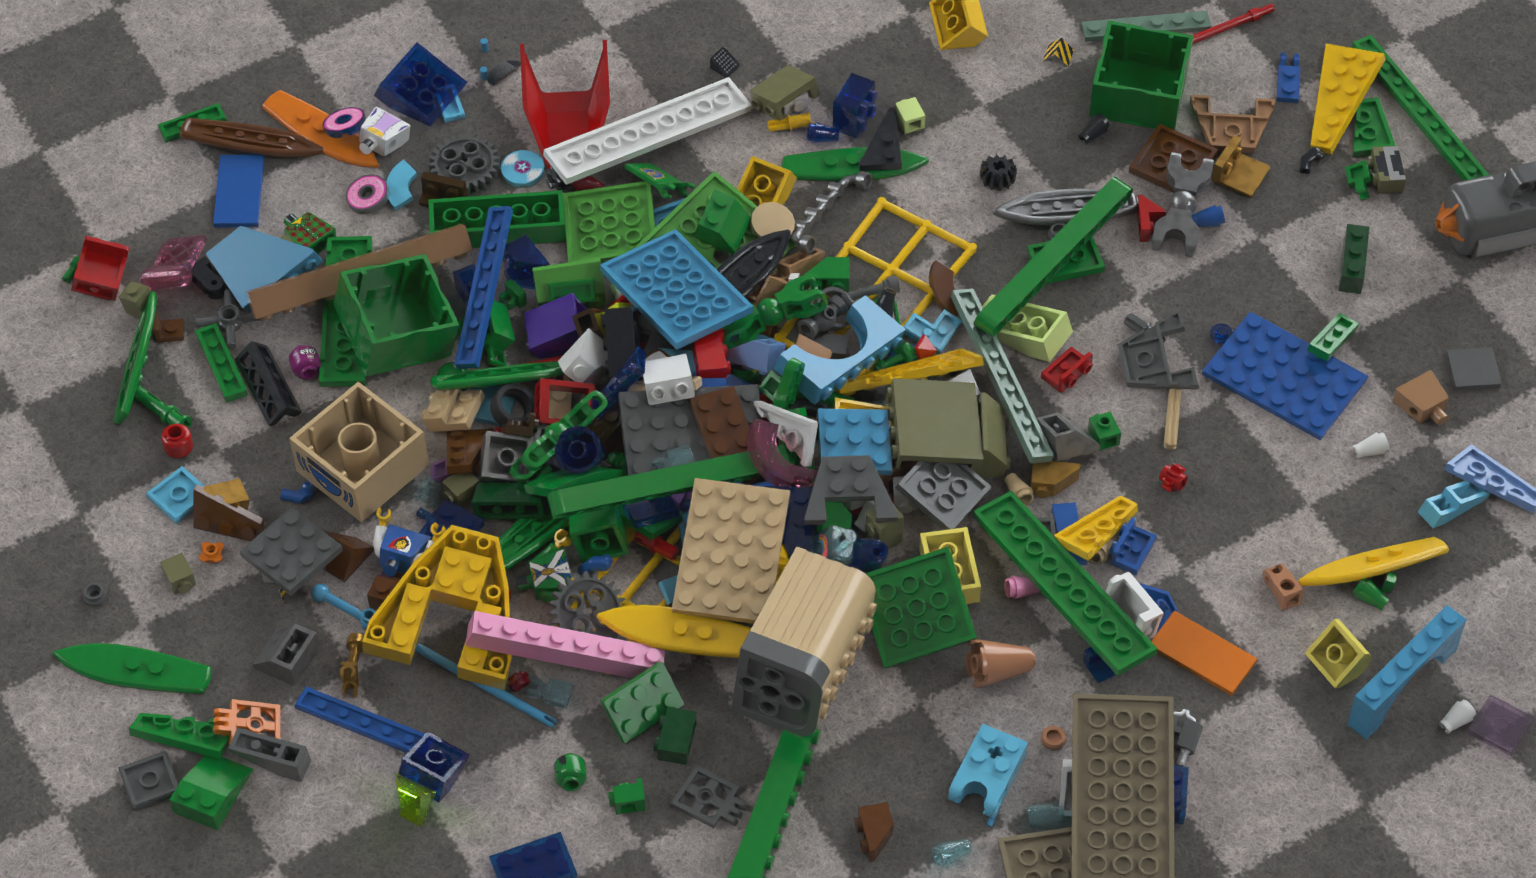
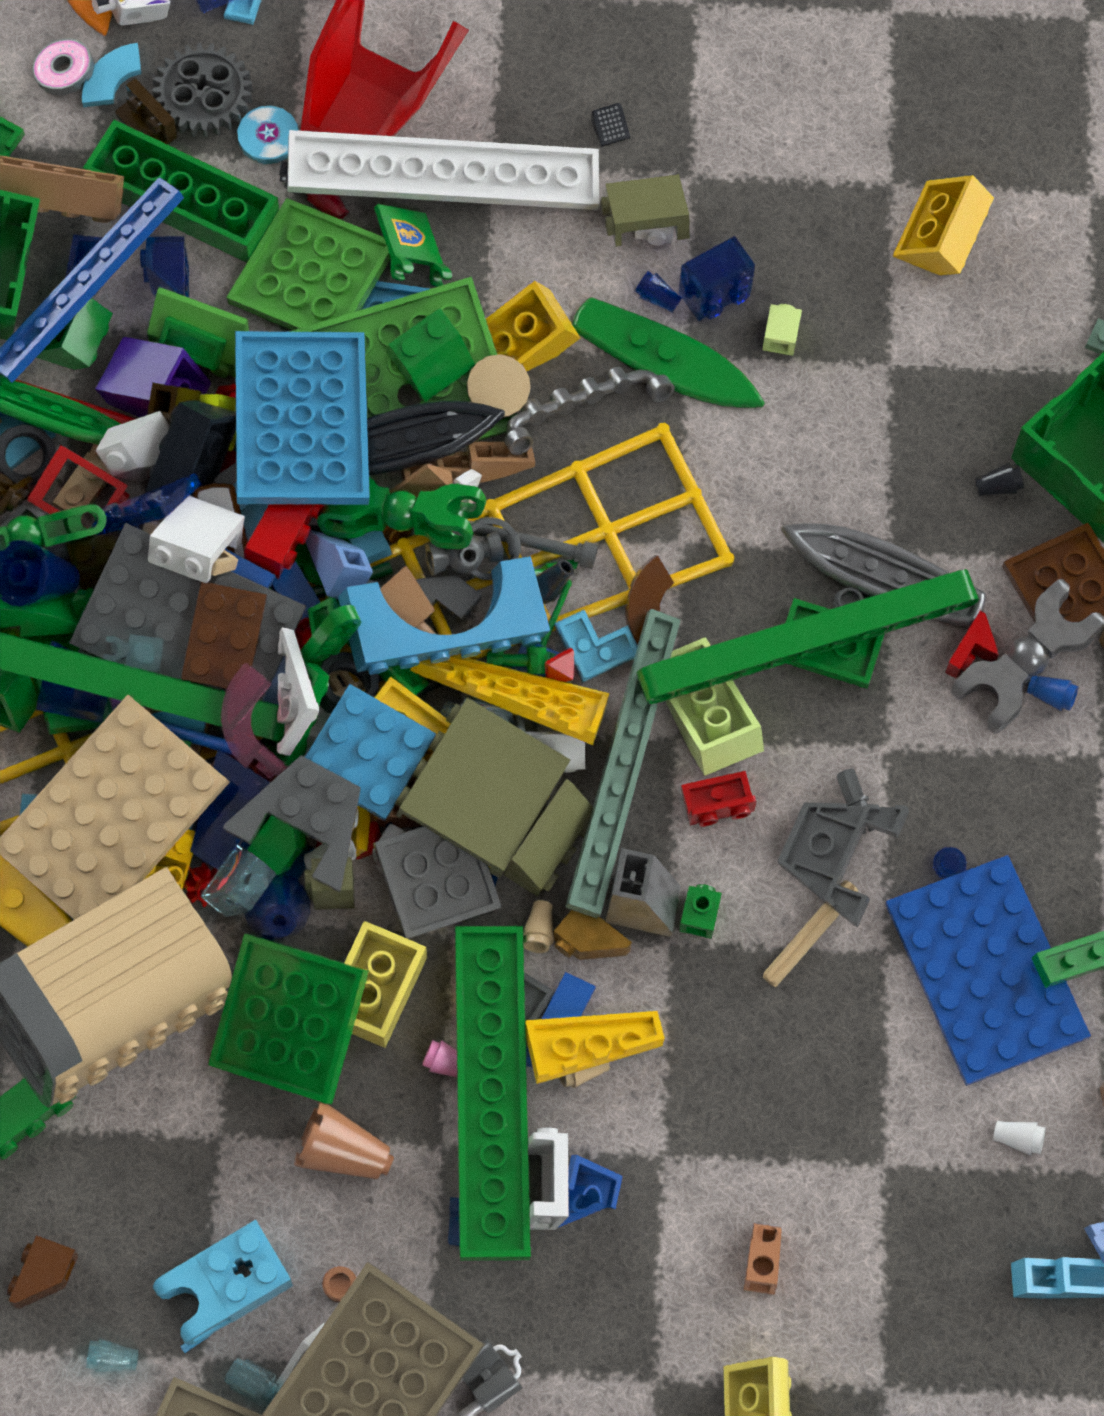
camera: 30 degrees right, 15 degrees up
(490, 354) = (53, 366): green slope -> none
(513, 293) = (134, 304): green tile -> none
(657, 545) = (56, 743): red axle -> none
(789, 122) = (630, 255): yellow axle -> none
(831, 273) = (518, 499): green slope -> none
(884, 148) = (717, 358): black wing -> none
(998, 172) = (832, 482): black gear -> none
(1061, 50) = (1040, 344): sticker -> none
(1131, 547) = (617, 1091): blue bracket -> none
(1173, 477) = (737, 1028): red gear -> none
(1203, 653) = (601, 1286): orange tile -> none
(1369, 593) = (864, 1337): green cone -> none
(1375, 562) = (902, 1300): yellow piece -> none
(1389, 582) = (902, 1335): green tile -> none

